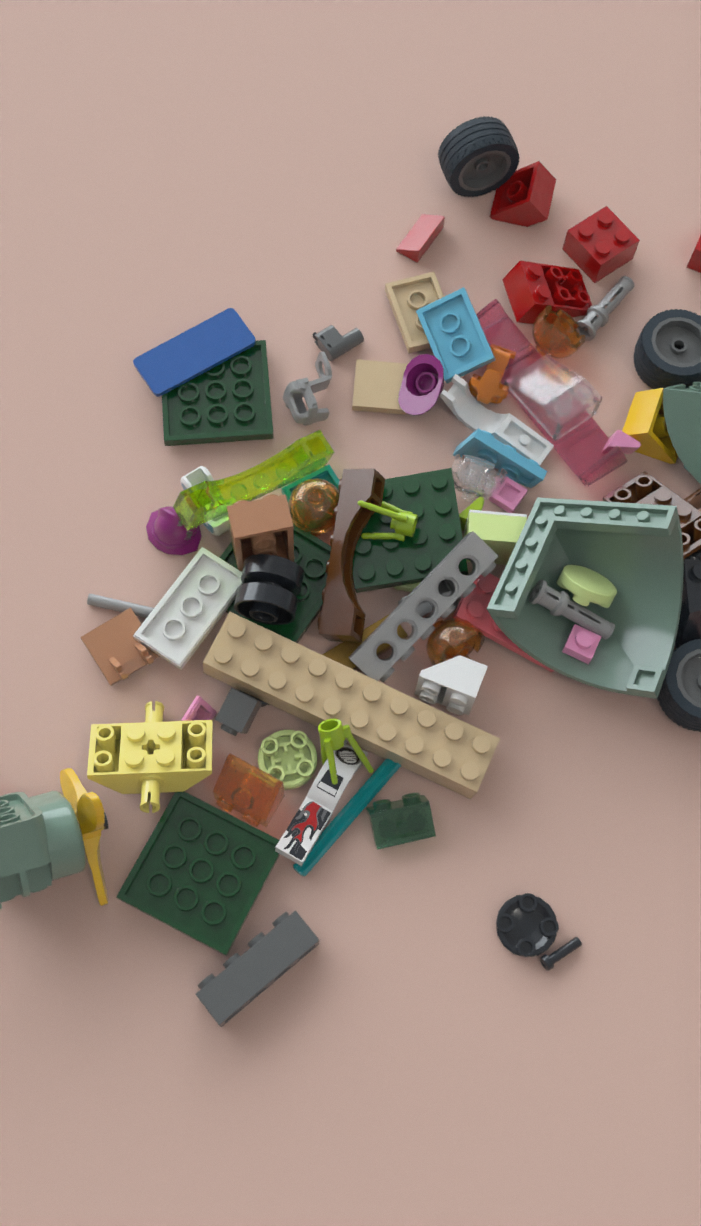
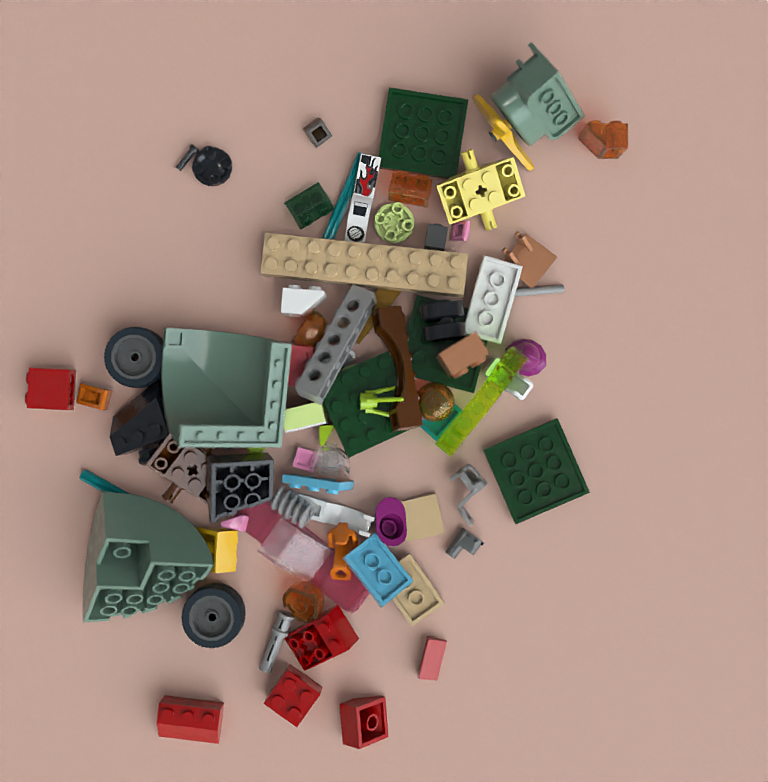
camera: 170 degrees right, 20 degrees up
(194, 352) = (562, 496): blue piece -> none
(257, 968) = (367, 86): dark grey brick -> none
(332, 738) = (366, 233): lime plant -> none
(355, 928) = (317, 132): none -> dark brown slope
(478, 156) = (407, 737): black wheel -> none
(542, 438) = (291, 508): none -> light grey piece
(560, 604) = (243, 374): light grey pin -> none
(581, 644) = (224, 356): bright pink plate -> none
(587, 586) = (230, 395): yellowish green tile -> none
(606, 473) = (238, 482): none -> black wedge

